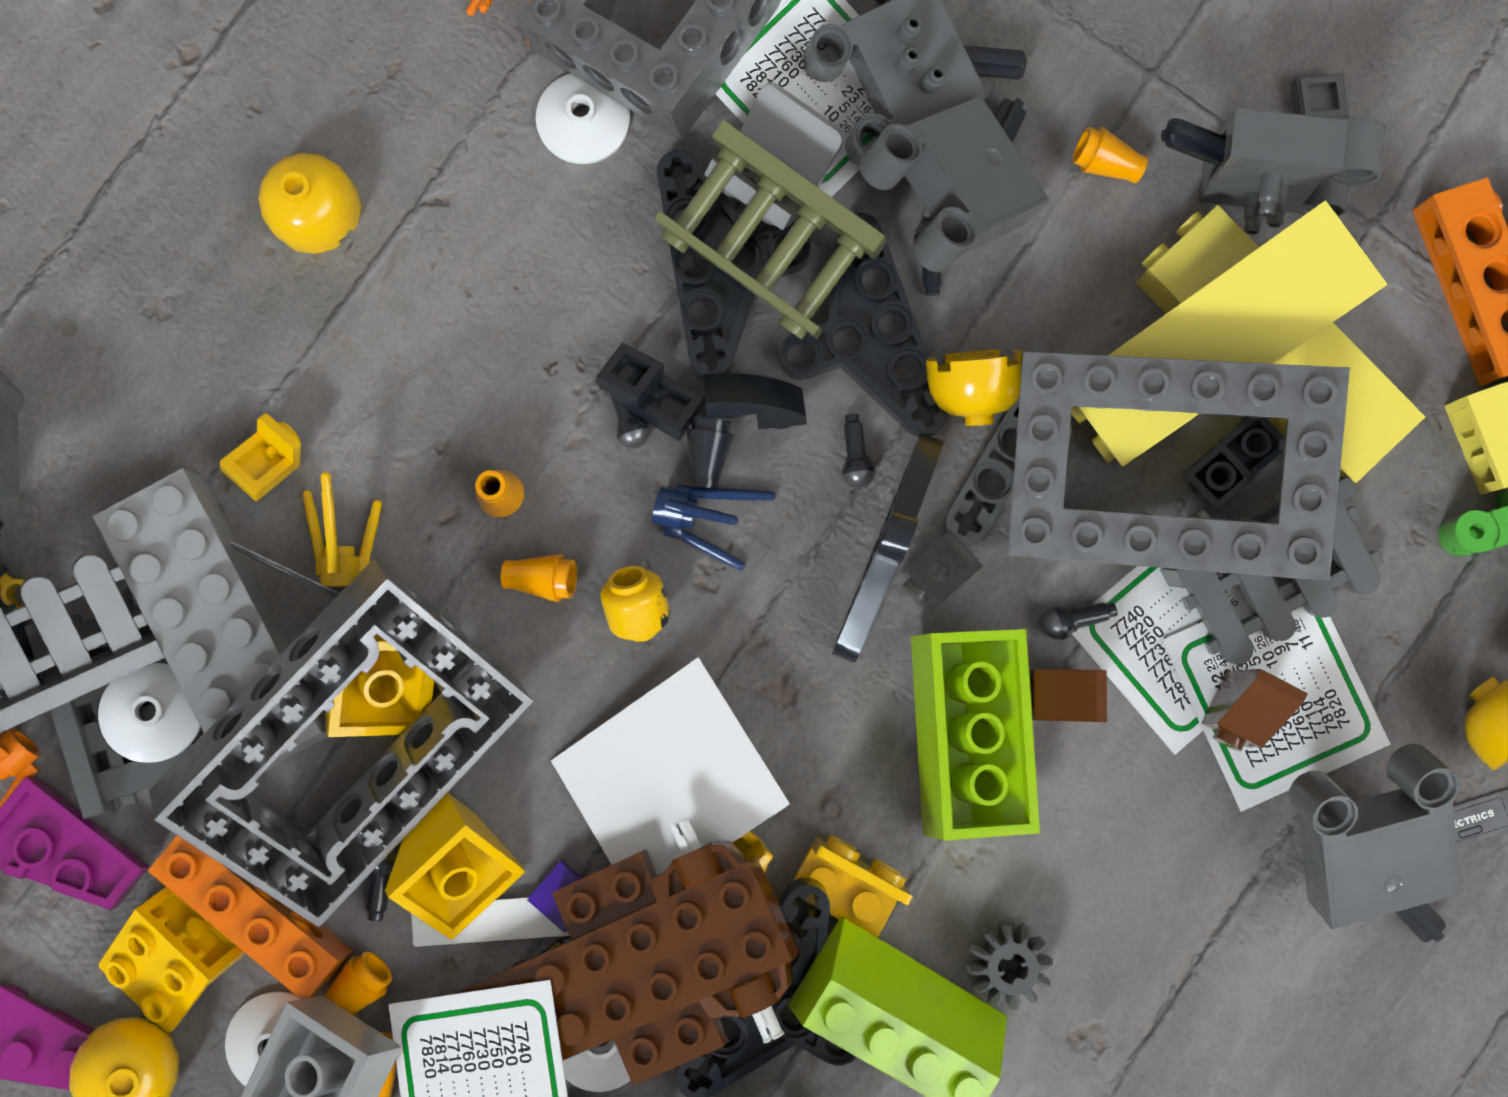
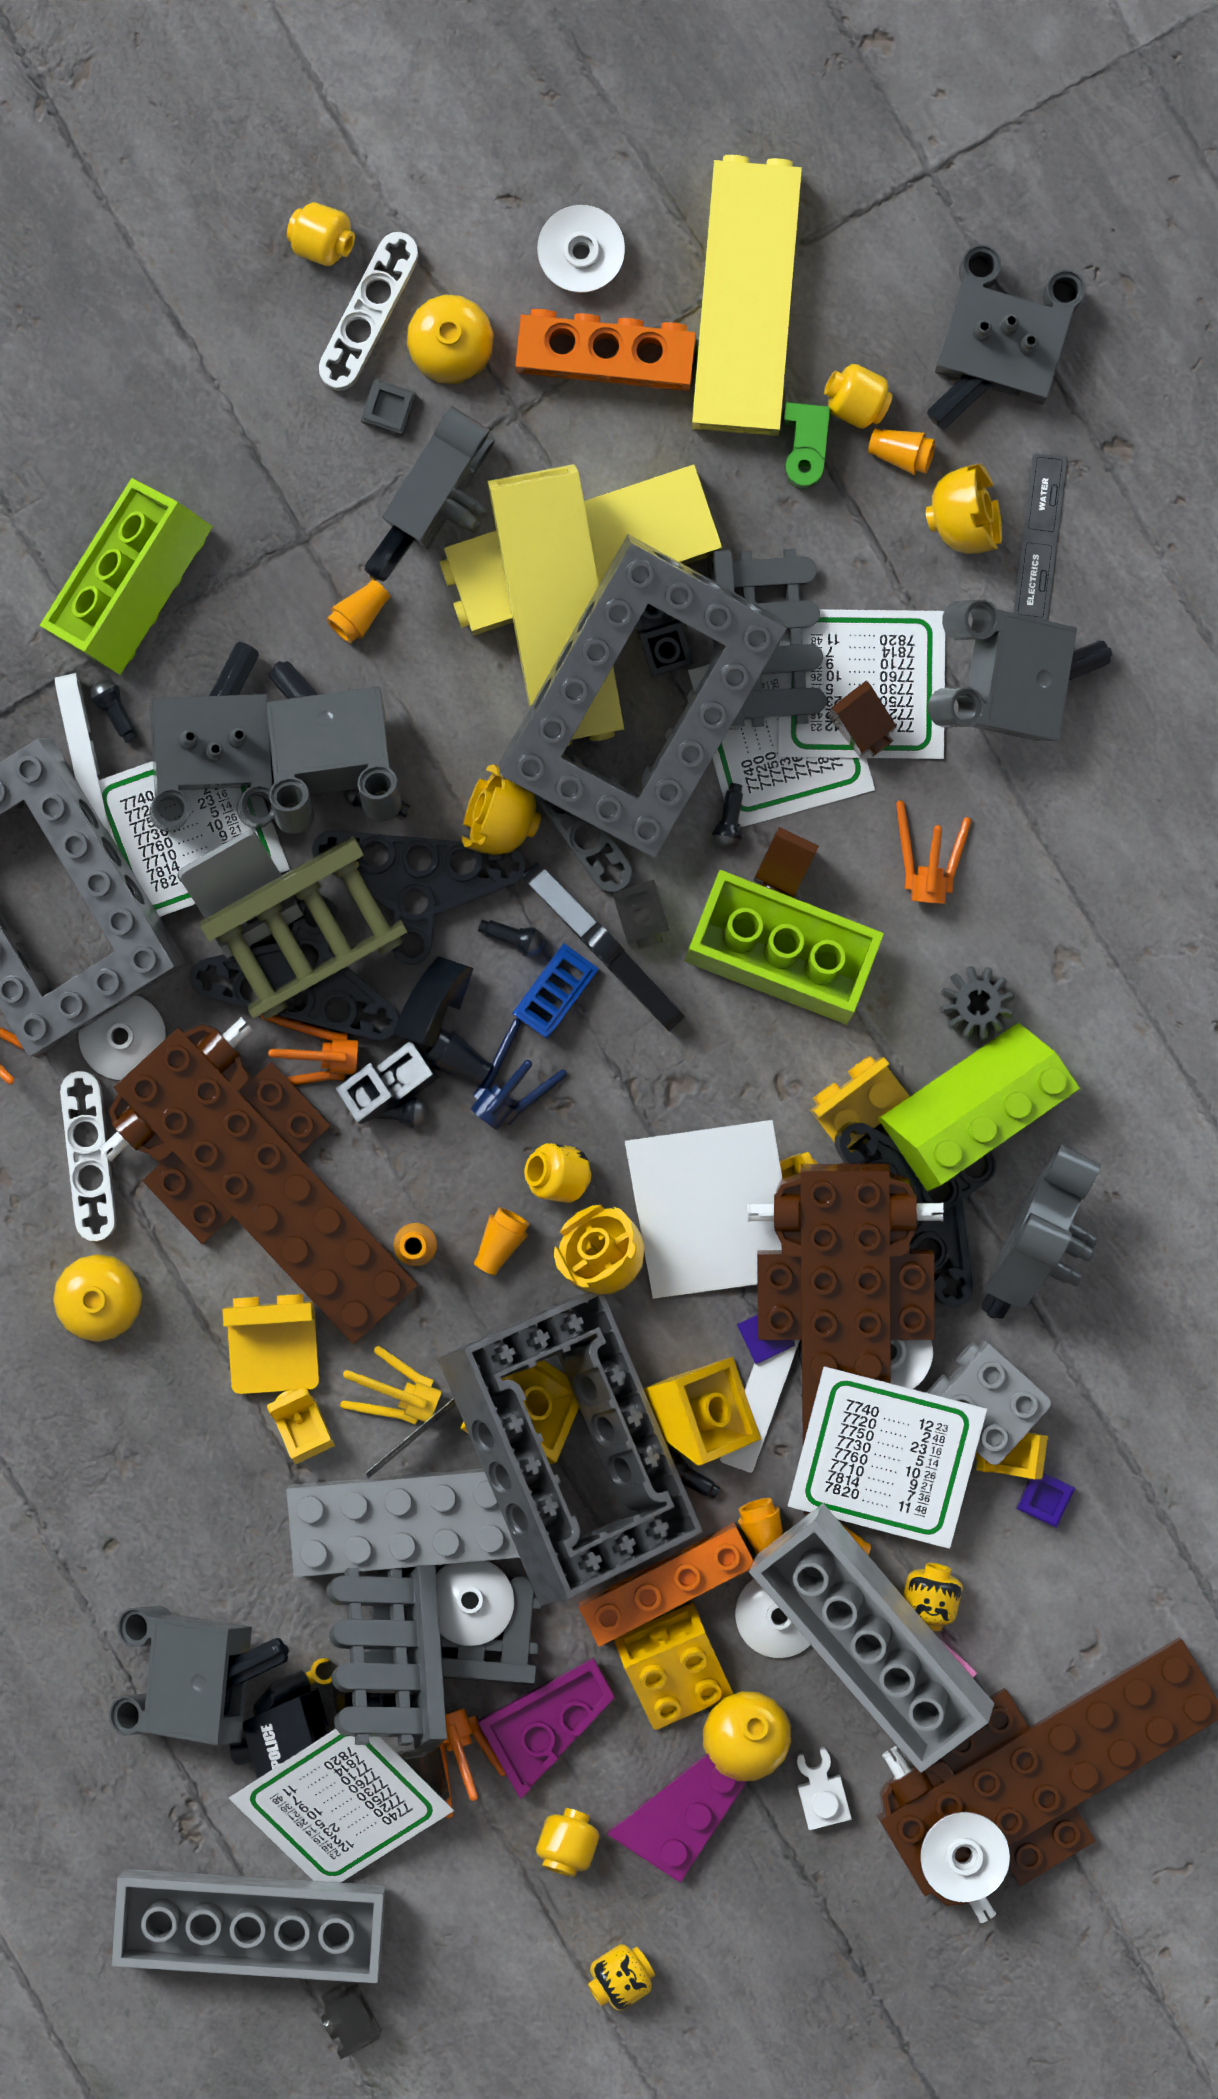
camera: 60 degrees left, 5 degrees up
(335, 393) = (272, 1344): none -> yellow bracket
(444, 126) = (83, 1156): none -> white beam
(511, 271) = (234, 1150): none -> reddish brown piece
(572, 683) = (600, 1250): none -> yellow cylinder
(656, 331) = (337, 1056): none -> orange plant
(824, 502) = (536, 1022): none -> blue slope
(1110, 857) = (930, 883): none -> orange plant
(1404, 45) = (363, 309): none -> white beam
(1424, 126) = (450, 339): none -> yellow cylinder

